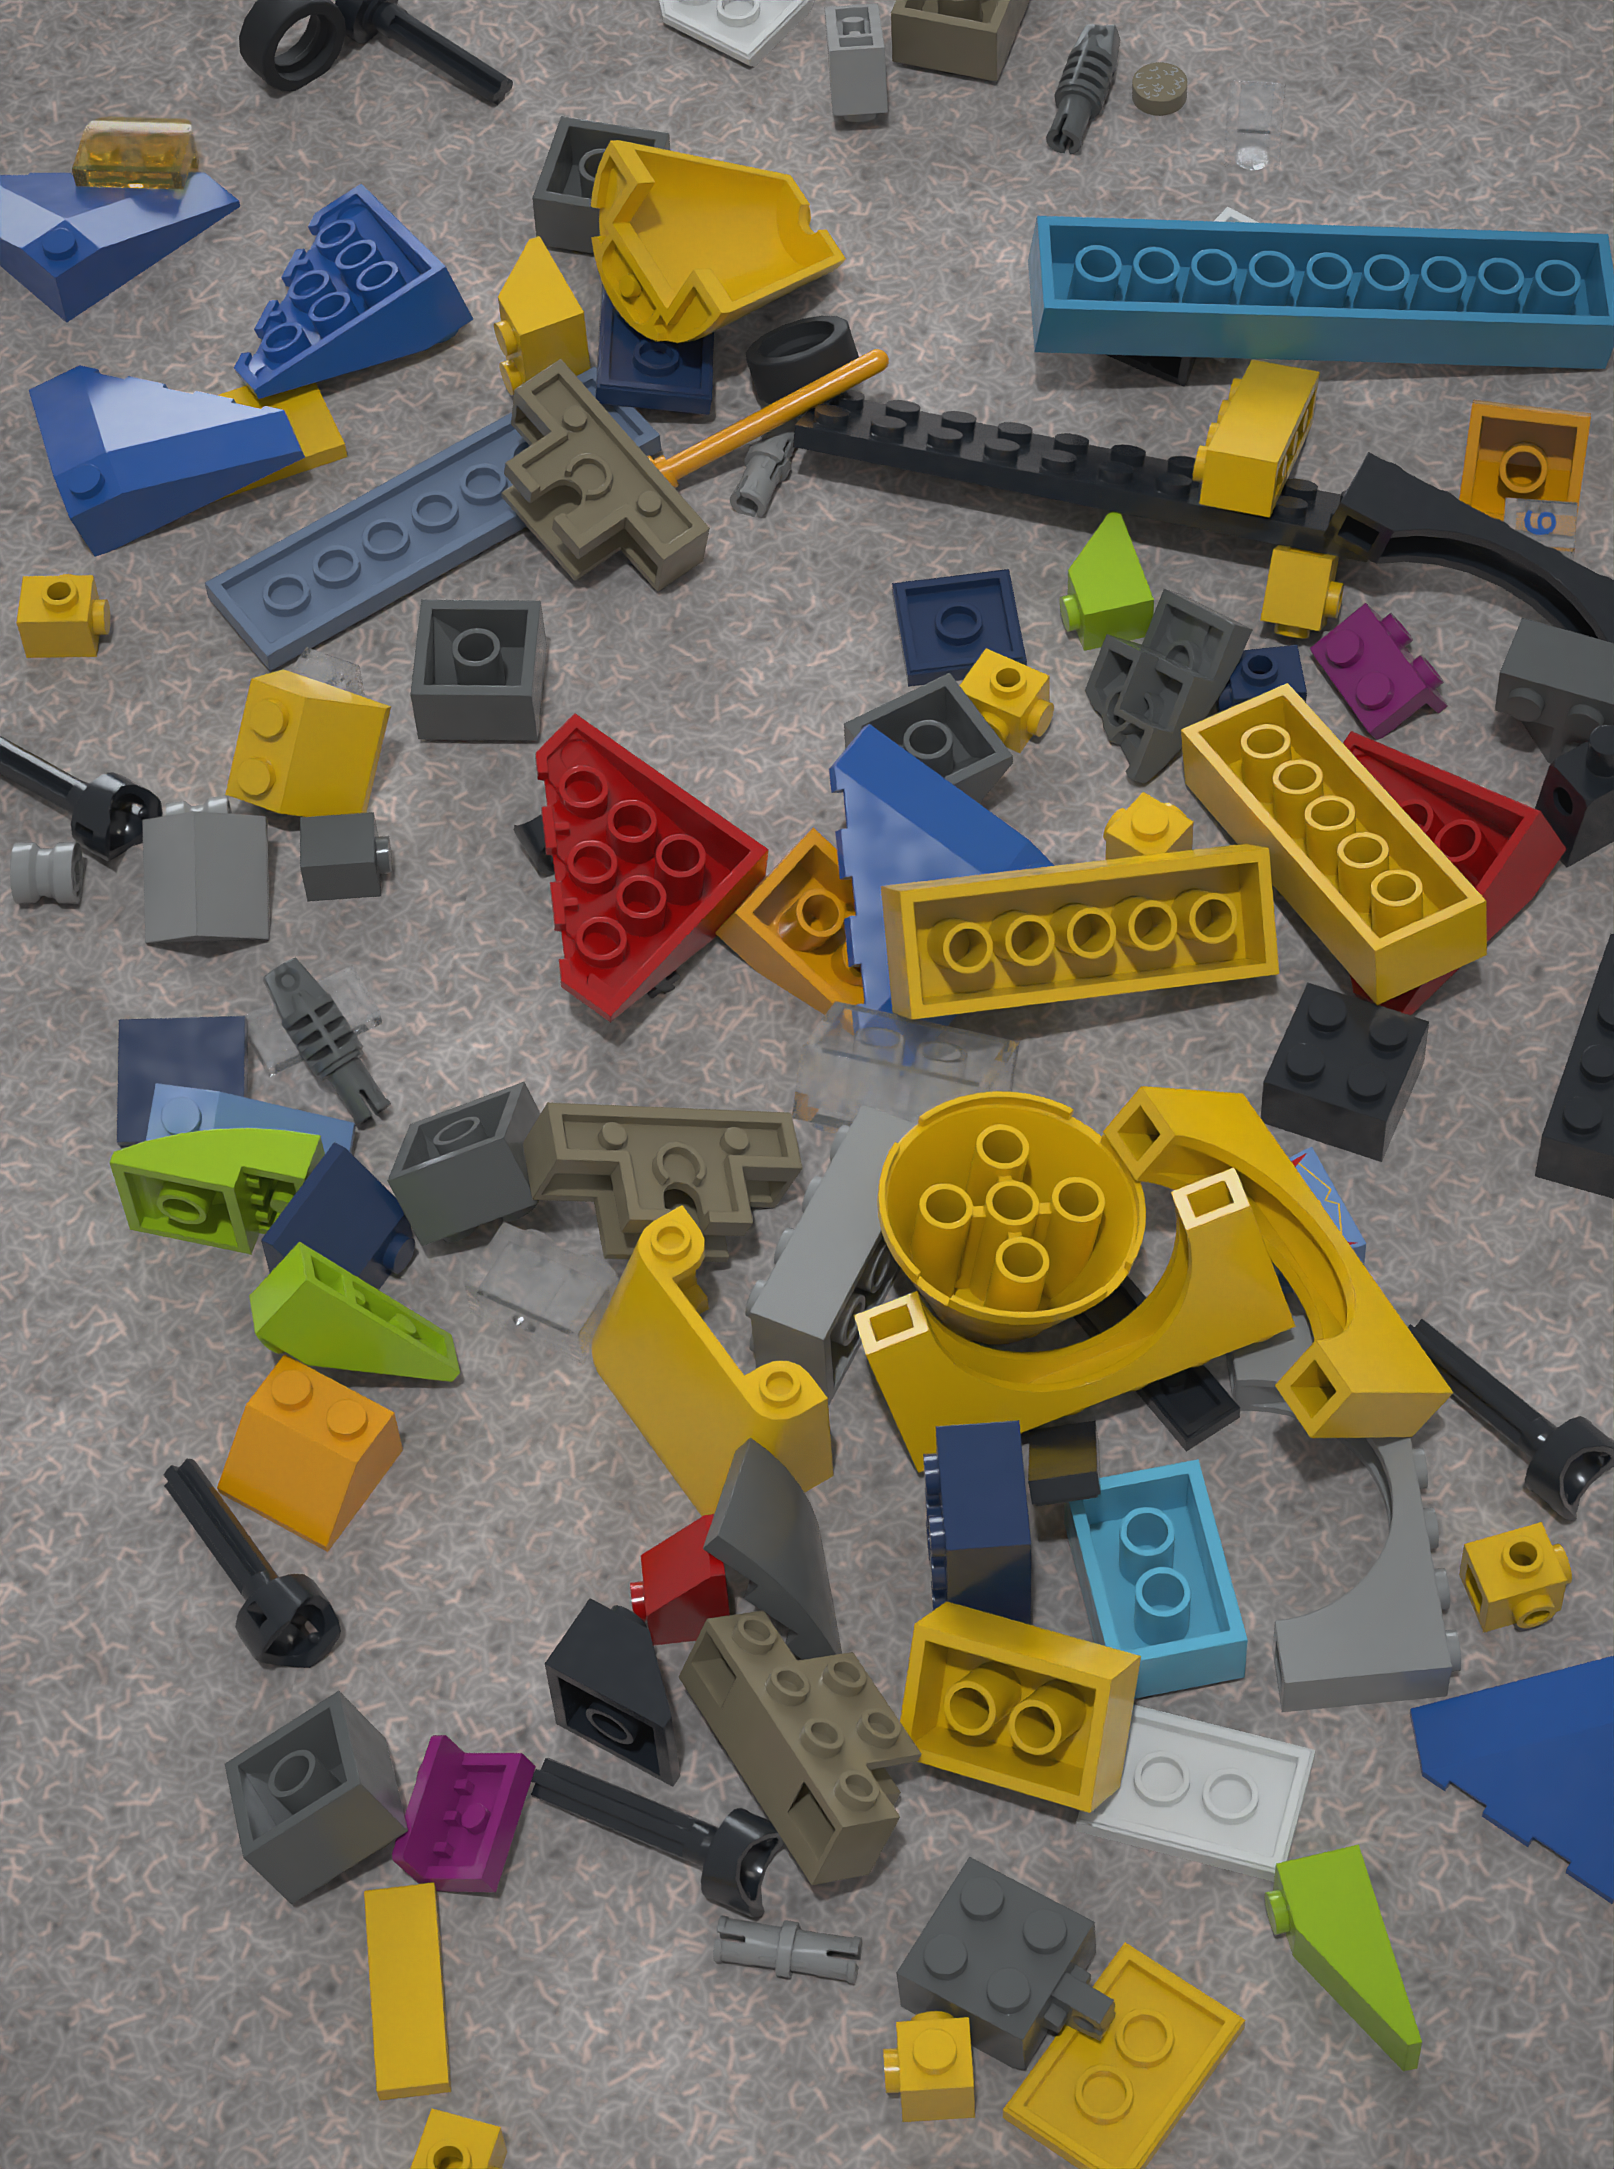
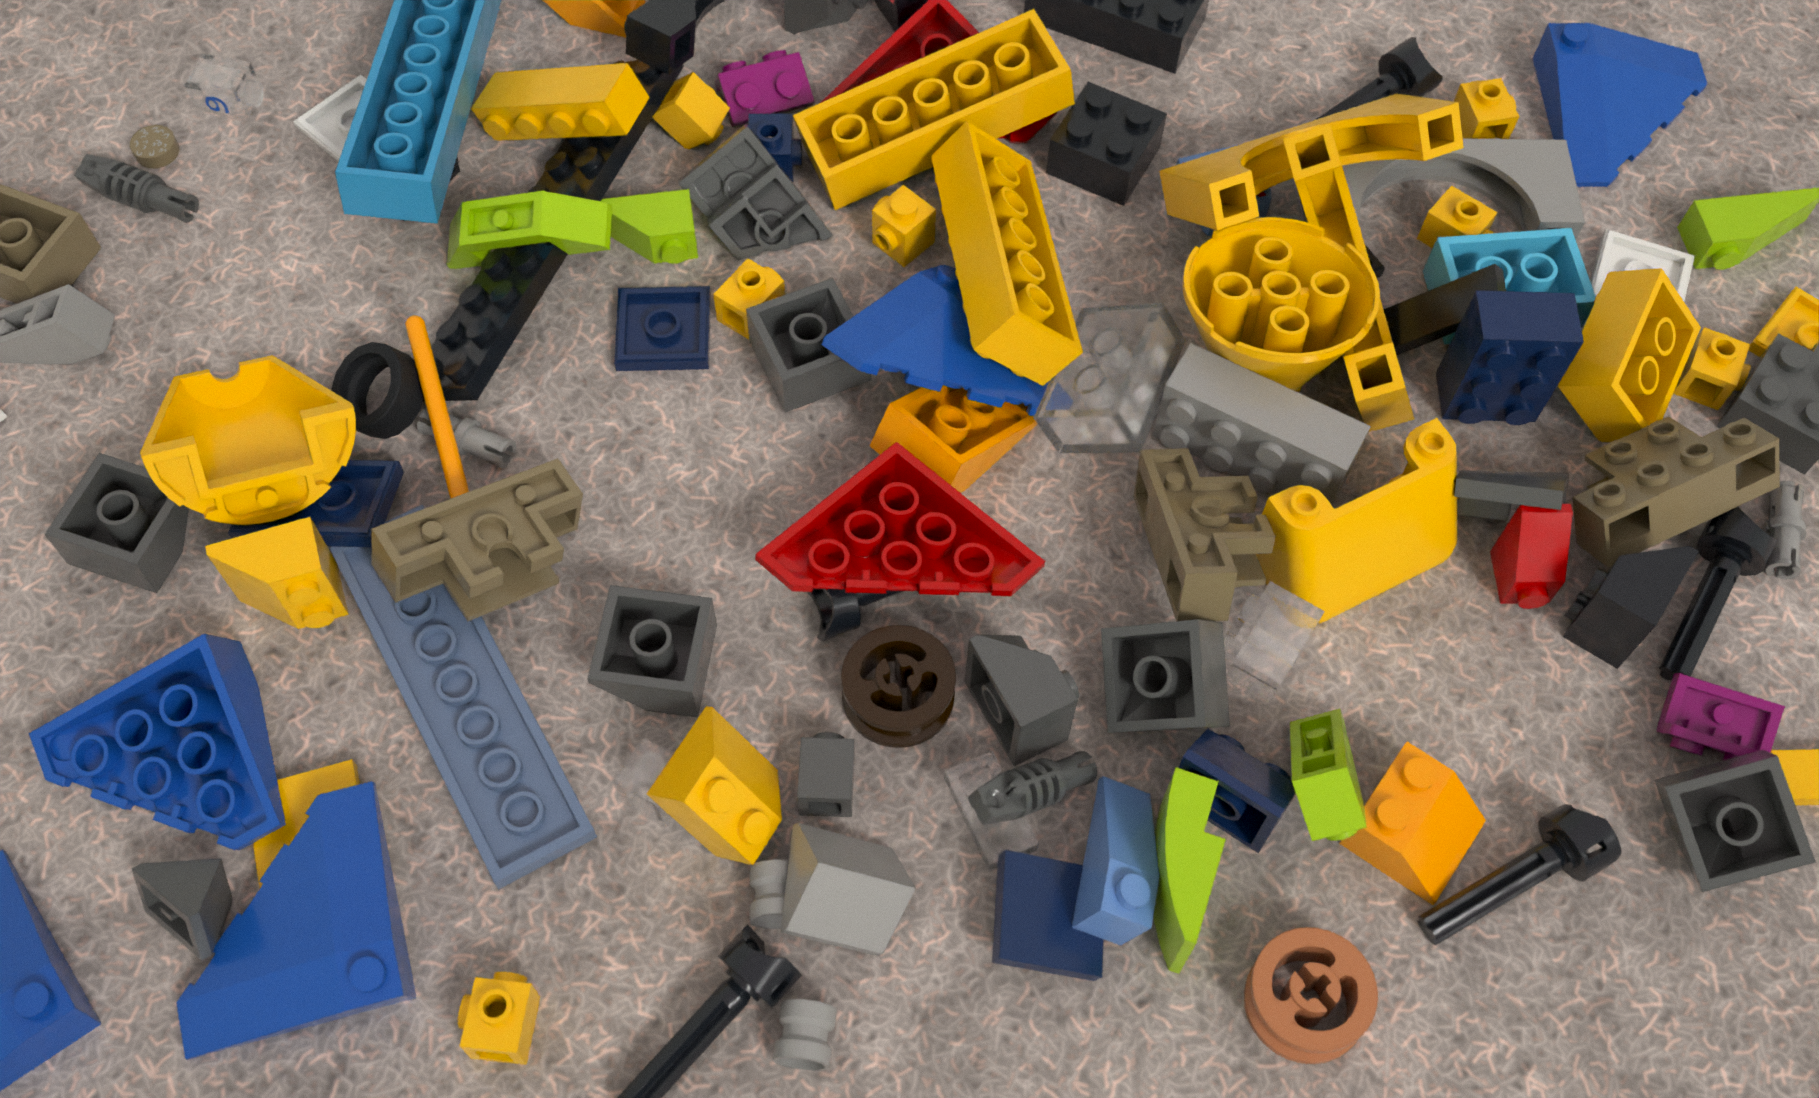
camera: 90 degrees left, 5 degrees up
(80, 1310) = (1331, 969): none -> nougat wheel
(174, 345) = (186, 900): none -> dark grey slope
(443, 1015) = (1020, 694): none -> dark grey slope
(457, 886) = (876, 704): none -> dark brown wheel
(1034, 427) = (526, 219): none -> lime slope
(1060, 1861) = (1713, 369): none -> yellow brick
(1275, 1533) = (1456, 216): none -> yellow brick

